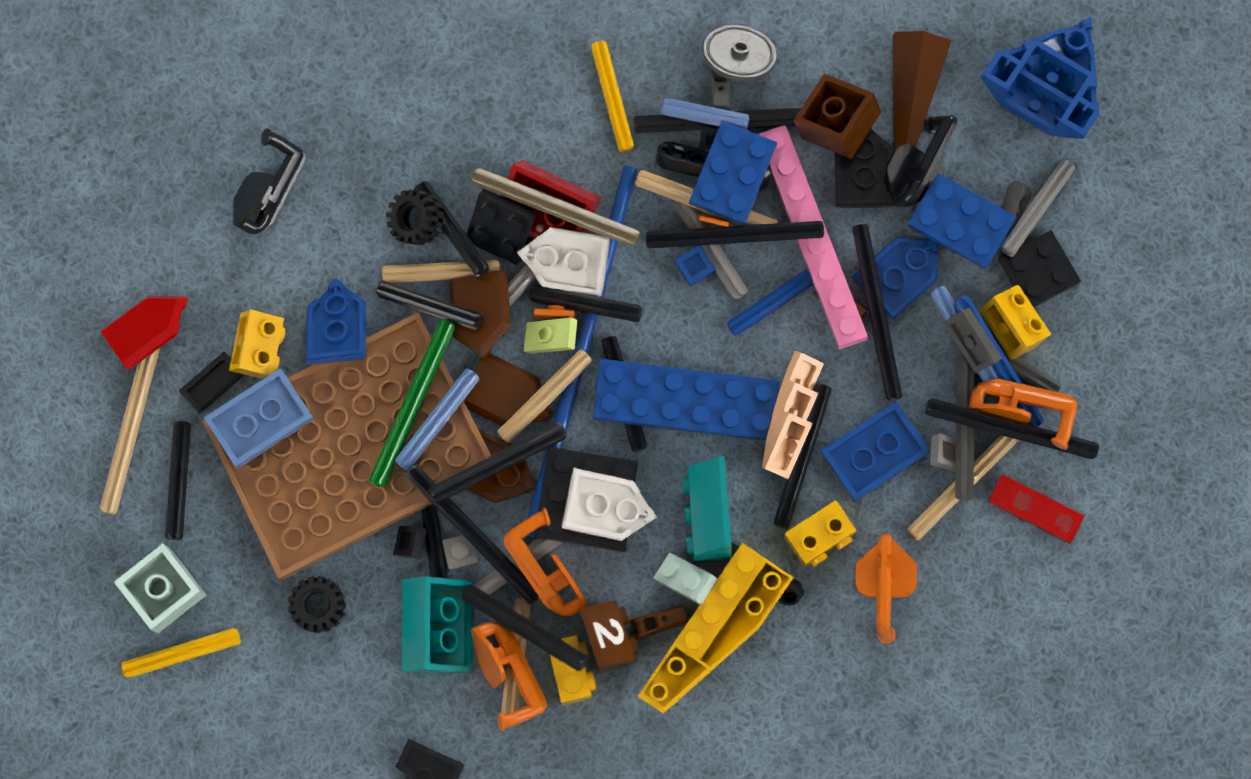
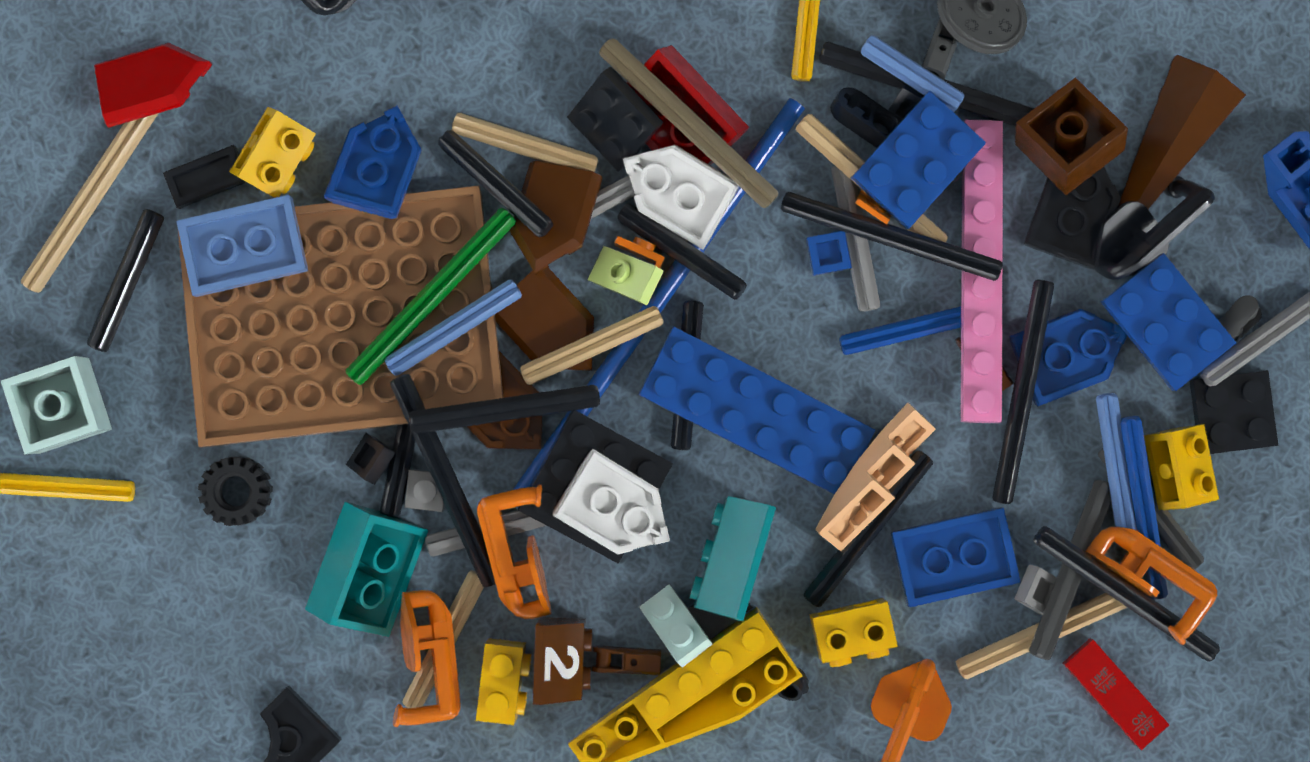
camera: 10 degrees right, 10 degrees up
(401, 212) = (499, 64): black tyre -> none
(458, 236) = (556, 98): black axle -> none
(525, 627) = (465, 617): black axle -> none
(972, 340) = (1125, 475): dark grey plate -> none

